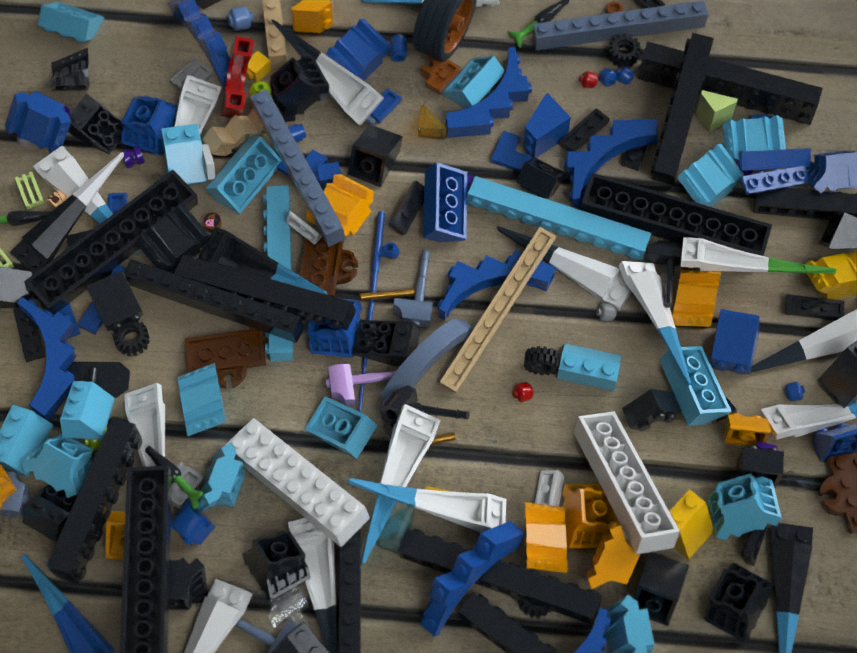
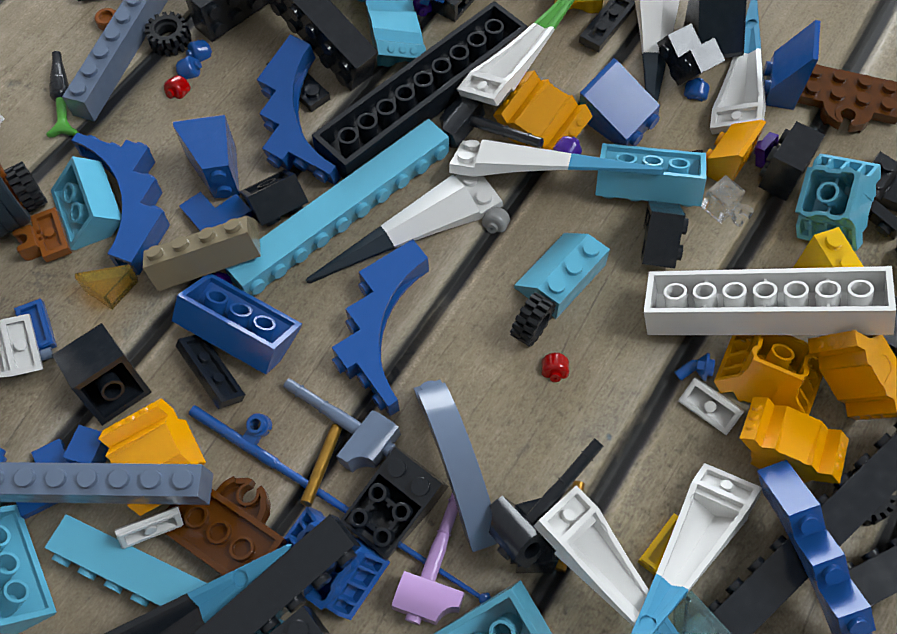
camera: 60 degrees left, 0 degrees up
(462, 44) = (25, 187): none -> black tyre
(475, 161) = (202, 252): none -> dark tan slope
(497, 310) = (436, 338): tan plate -> none
(571, 474) = (703, 366): none -> blue plate
(584, 130) = (243, 123): black plate -> none
(678, 323) = (568, 145): none -> dark purple piece
(704, 441) = (724, 200): none -> clear brick
(810, 366) = (687, 55): none -> brick

